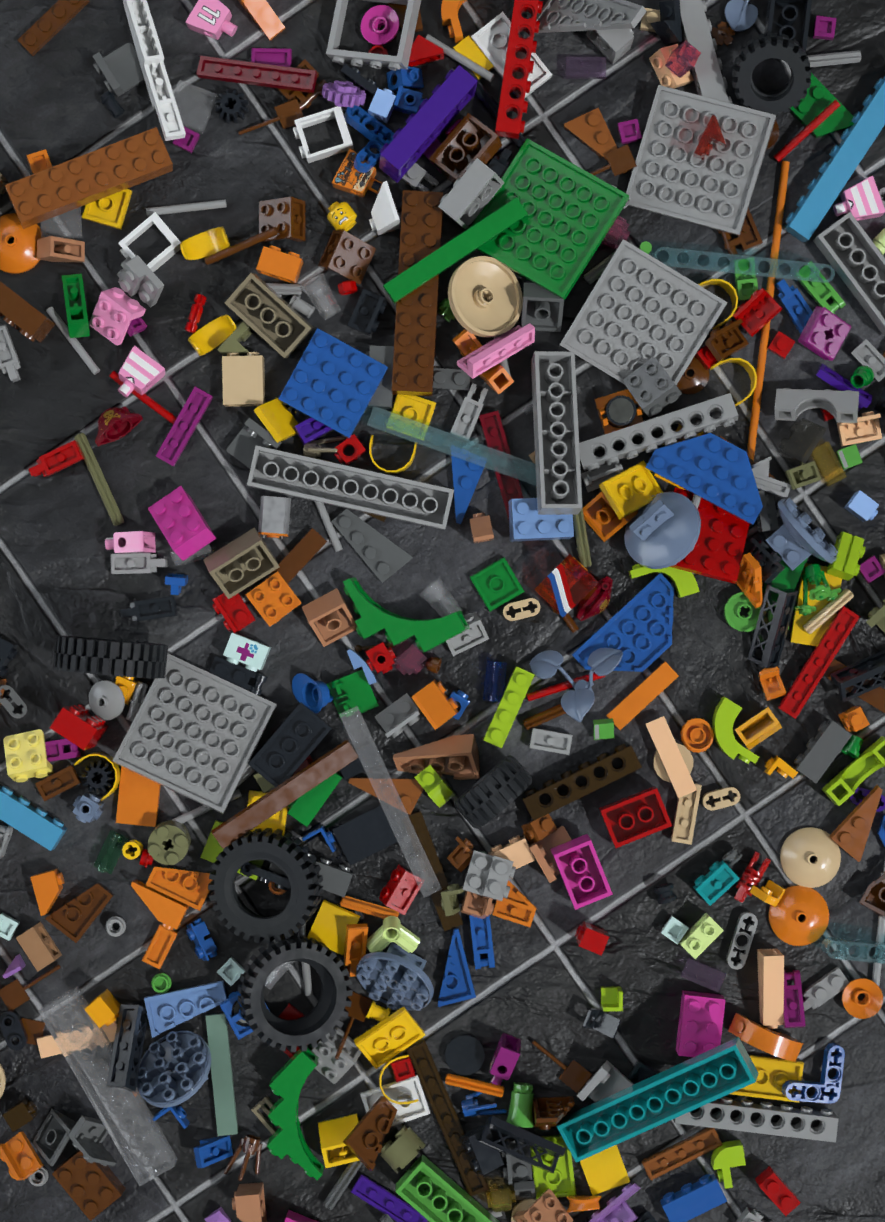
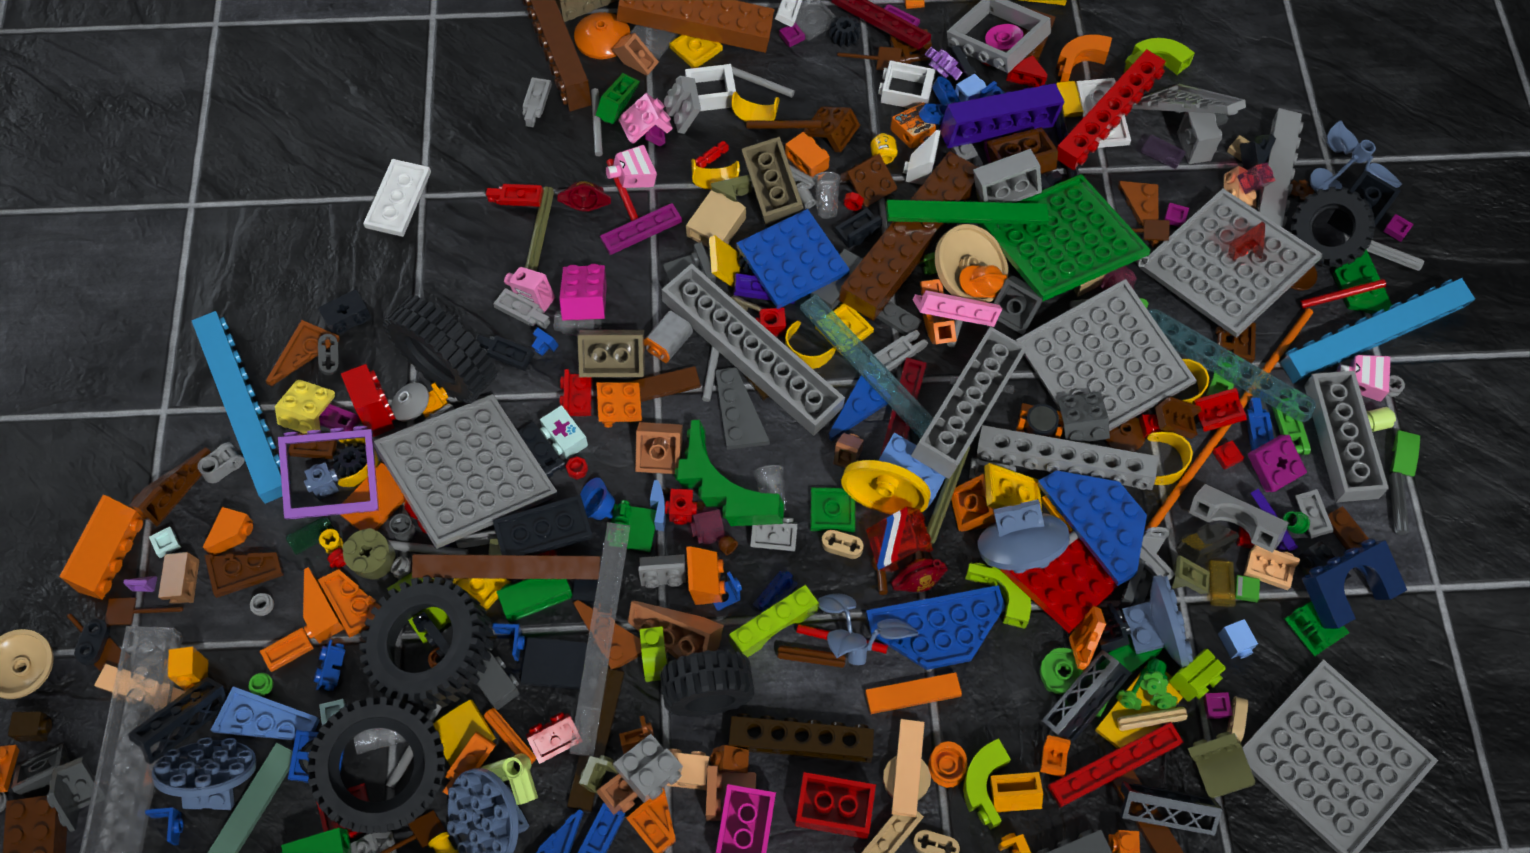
camera: 25 degrees right, 25 degrees down
(116, 829) = (328, 510): none -> medium lavender window
(178, 808) = (399, 524): none -> dark grey wheel
(199, 835) = (401, 567): none -> light grey plate
(276, 673) = (576, 467): none -> red tile
(410, 78) = (1003, 80): blue bracket -> none
(462, 59) = (1068, 103): light grey bar -> none
(502, 308) = (982, 281): none -> orange piece
(533, 551) = (885, 486): none -> yellow dish
(550, 741) = (795, 681): light grey plate -> none
(603, 729) = (855, 700): bright green tile -> none

